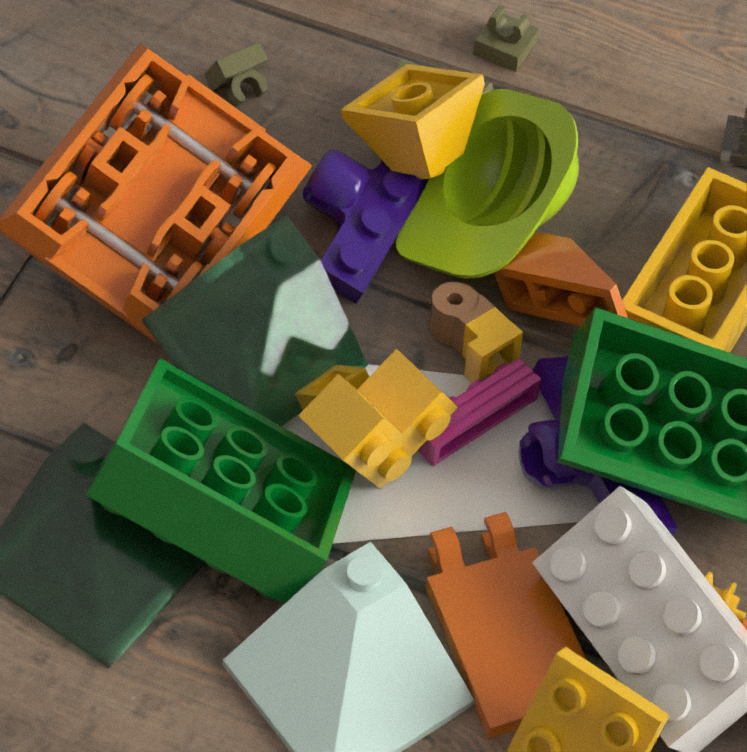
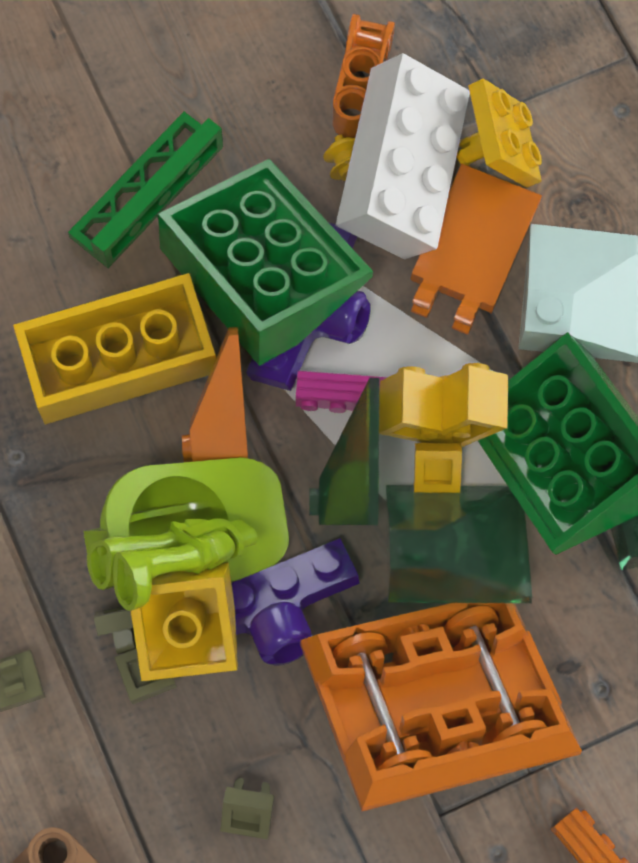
camera: 135 degrees left, 20 degrees up
(397, 303) = (351, 476): none -> clear green slope
(468, 158) = (189, 546): none -> lime piece
(473, 329) = (296, 445): leg -> none

